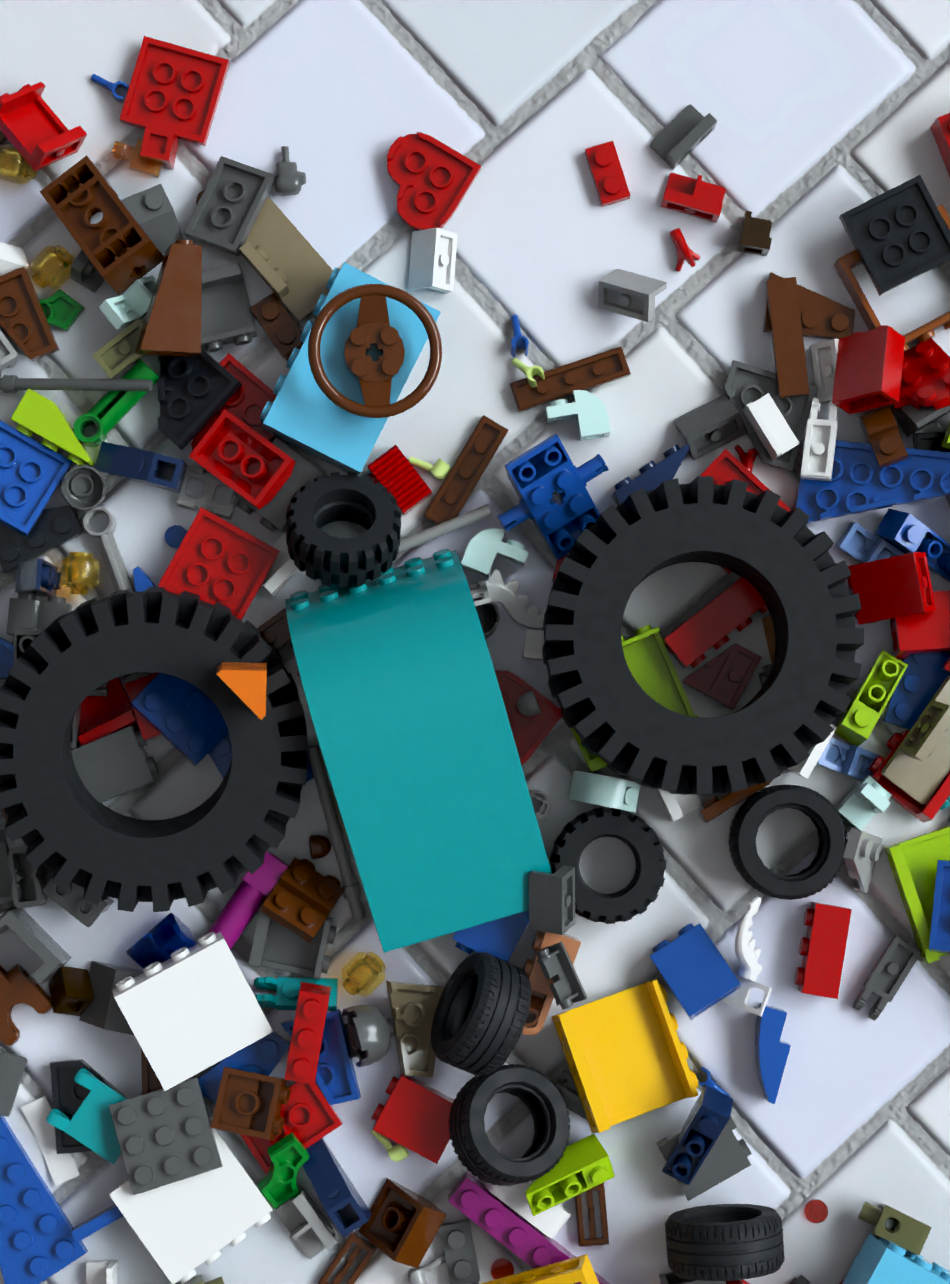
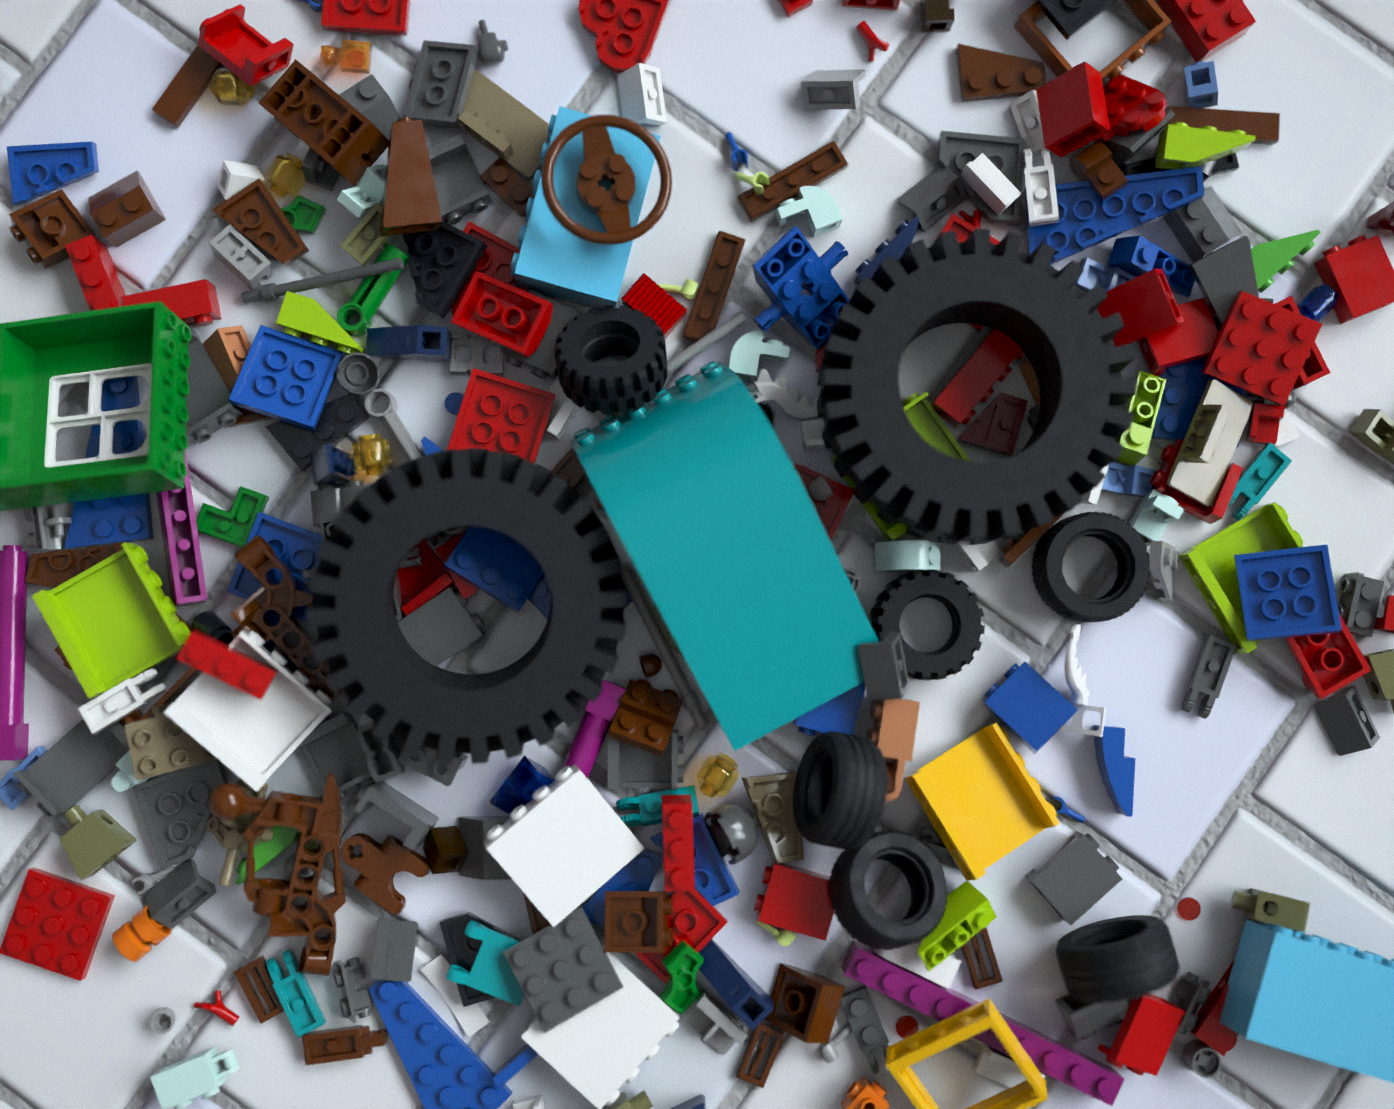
camera: 10 degrees left, 0 degrees up
(159, 146) = (364, 41): red panel -> none
(247, 682) = (552, 516): orange slope -> none
(558, 966) = (907, 731): dark grey hinge -> none
(698, 1134) = (1069, 860): dark blue slope -> none
(787, 337) = (988, 98): reddish brown tile -> none
(823, 950) = (1144, 662): red brick -> none

